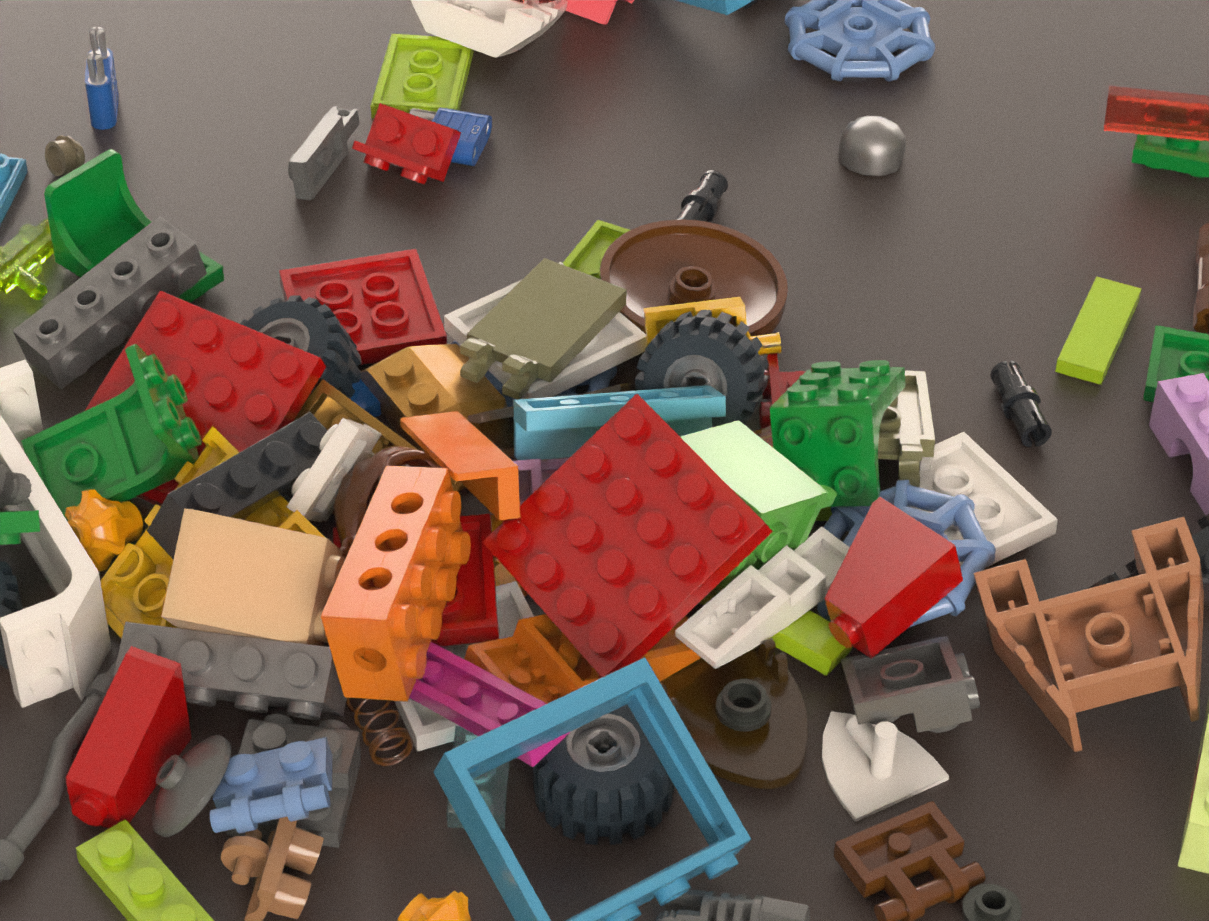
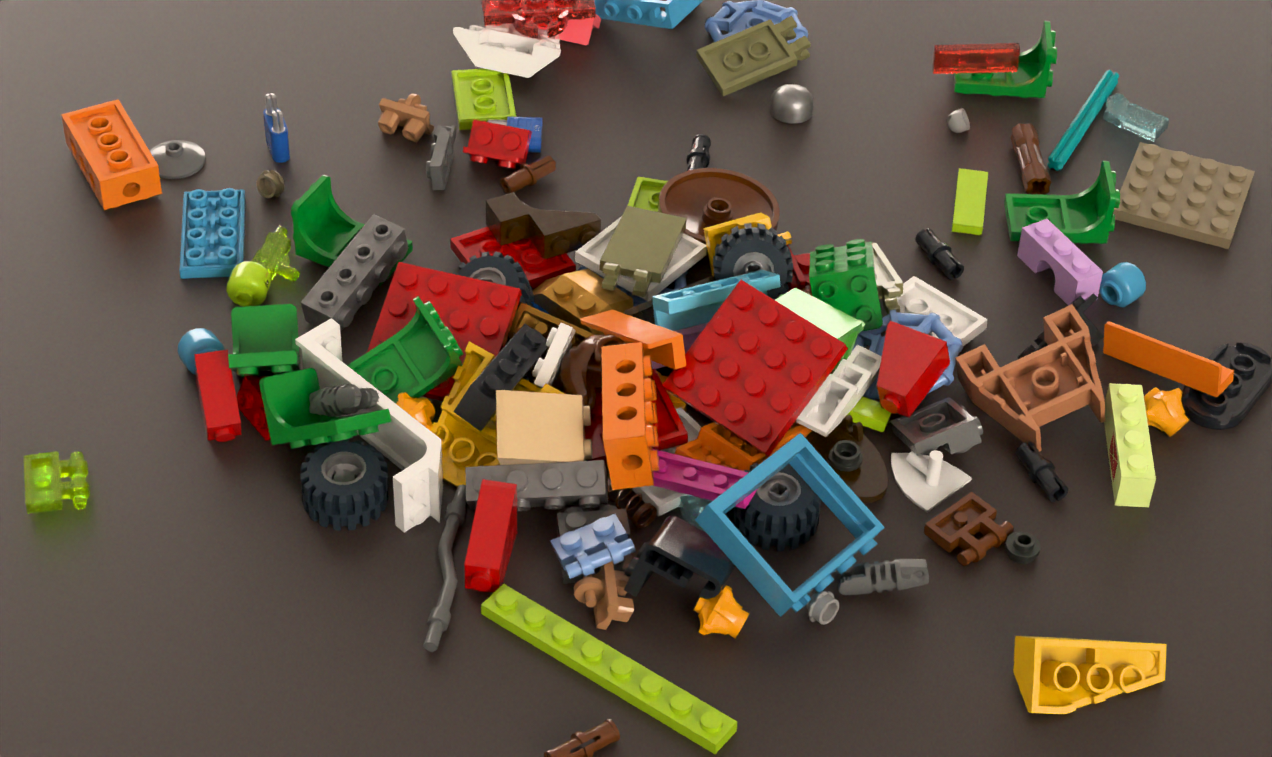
camera: 15 degrees left, 0 degrees up
(189, 784) = (539, 556): dark grey dish -> none
(300, 84) = (405, 113): none -> medium nougat hips
(396, 825) = (677, 554): none -> black piece
(425, 279) = (549, 230): none -> dark brown arch
(436, 194) = (528, 174): none -> reddish brown axle
(837, 67) = (753, 55): none -> olive tile
(1067, 786) = (1041, 471): none -> black pin
(1122, 206) = (958, 121): none -> light grey hinge

